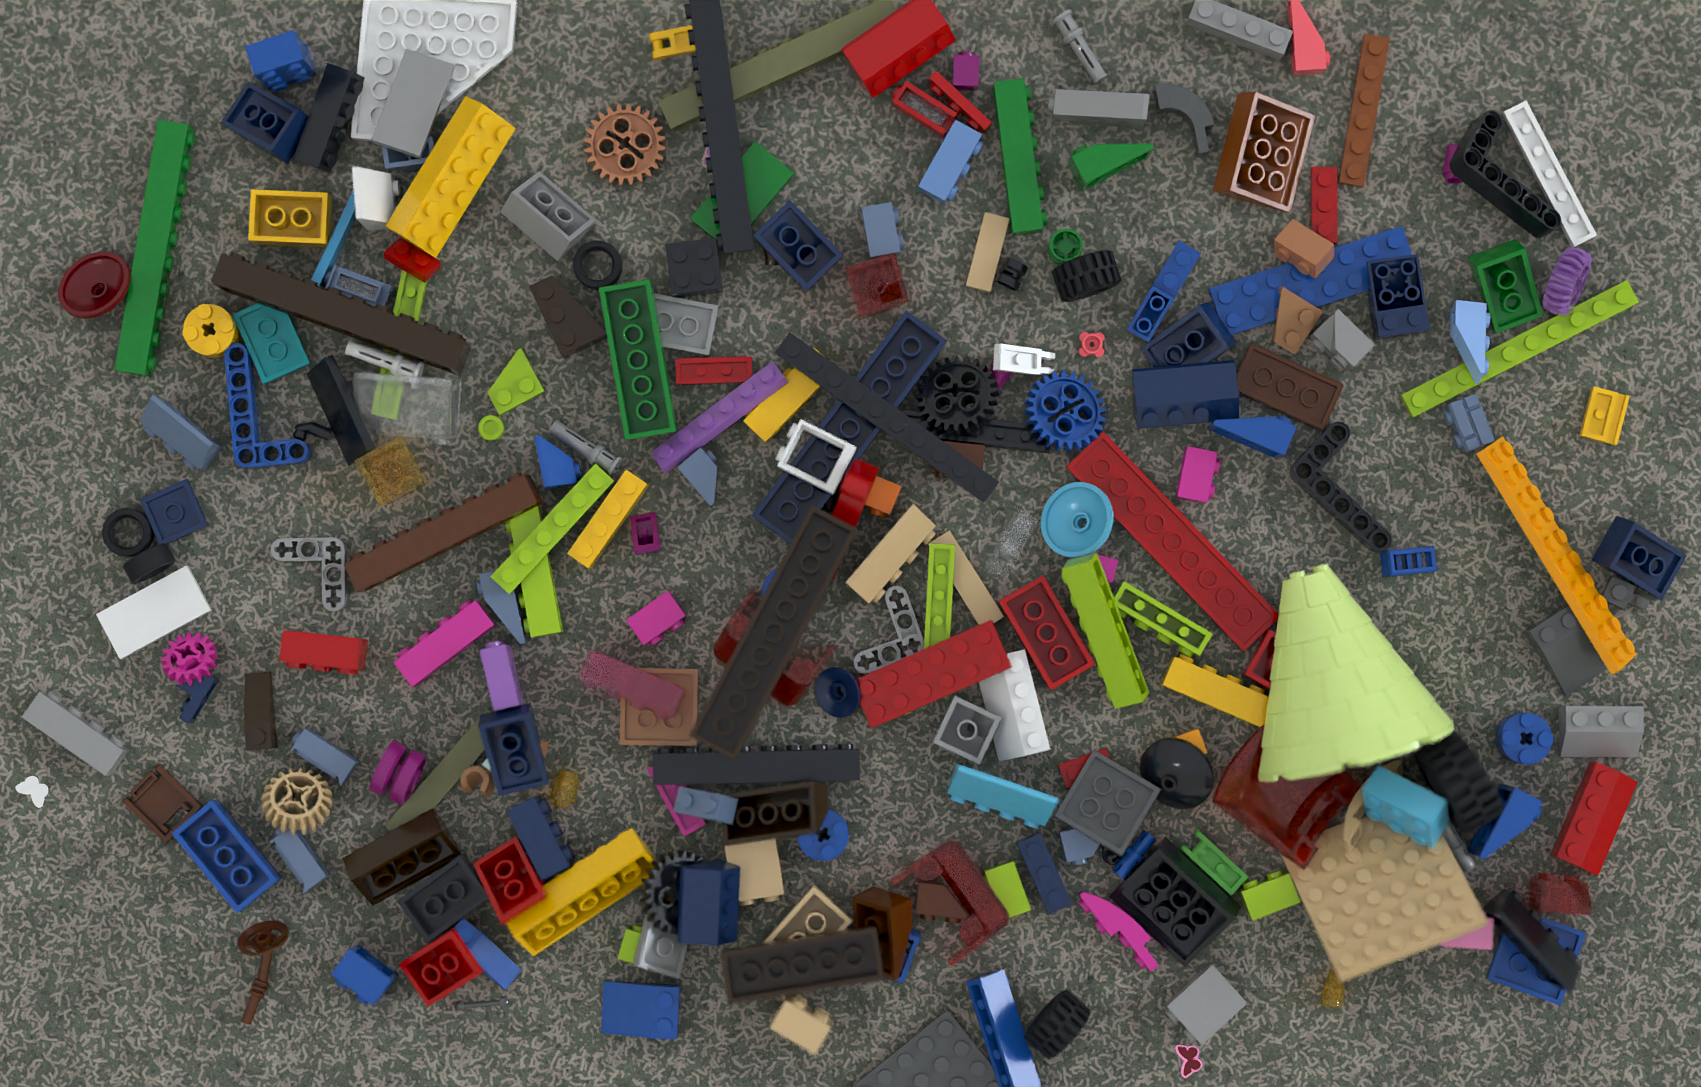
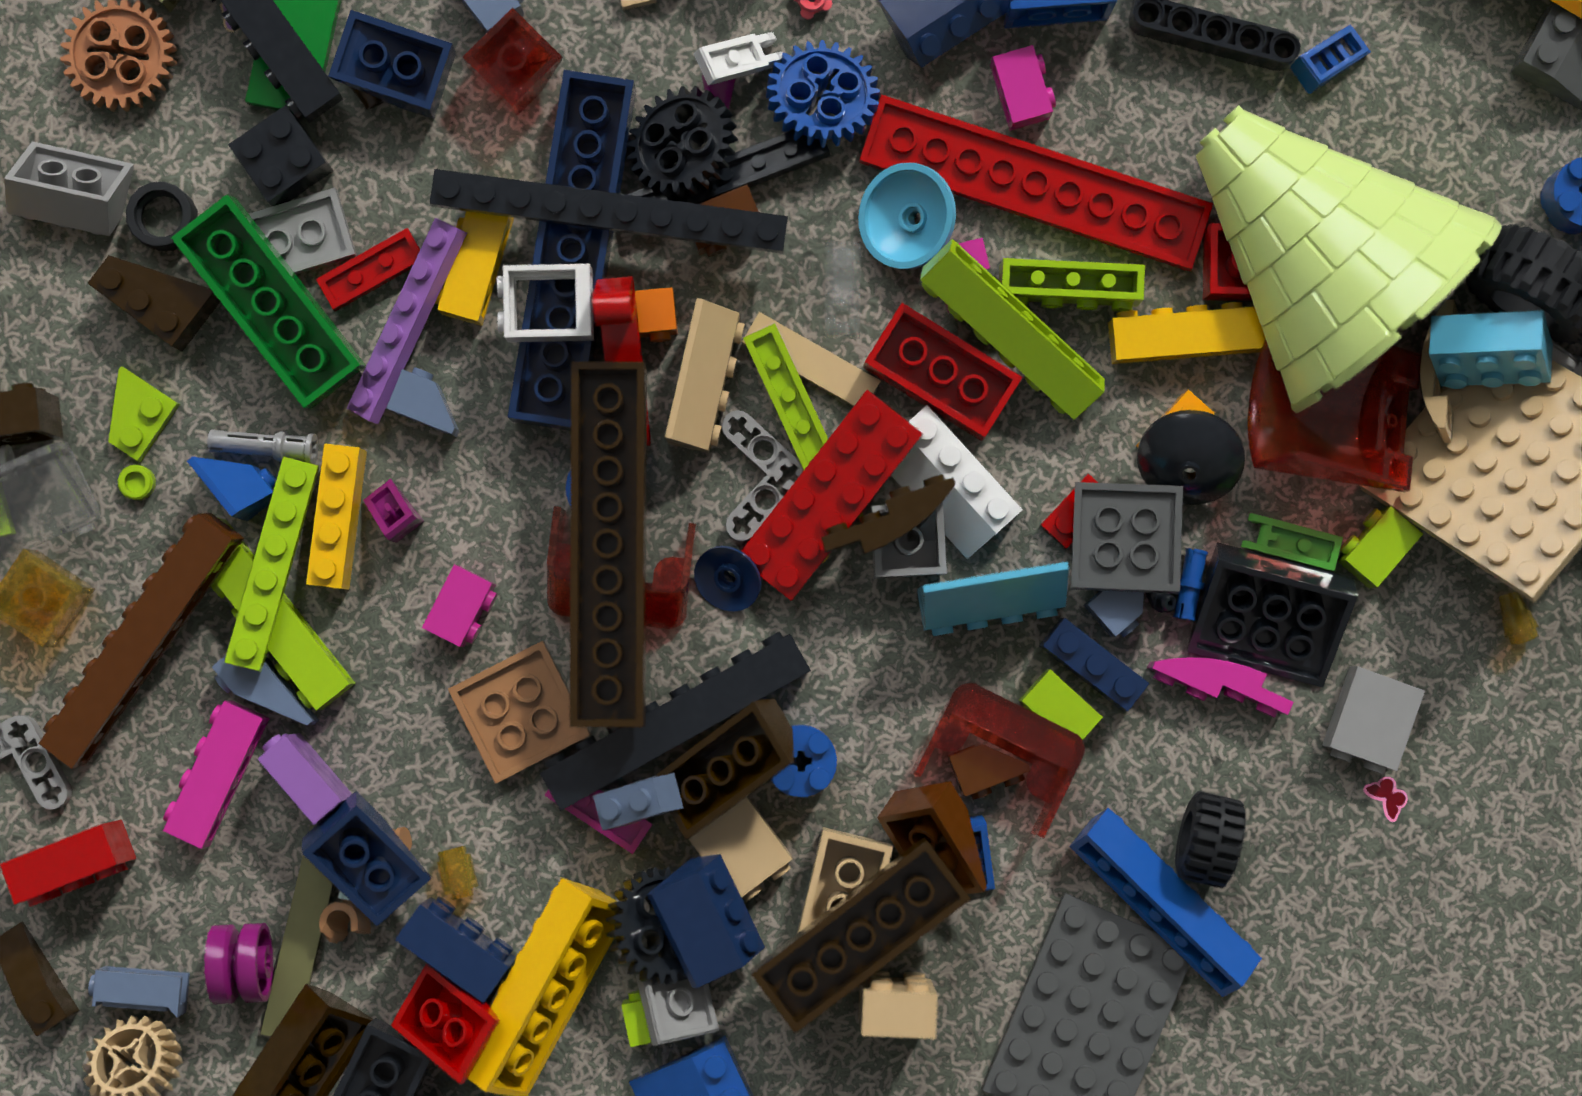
camera: 30 degrees left, 0 degrees up
(631, 683) = (470, 700): clear pink brick -> none
(973, 710) = (904, 512): none -> dark brown slope

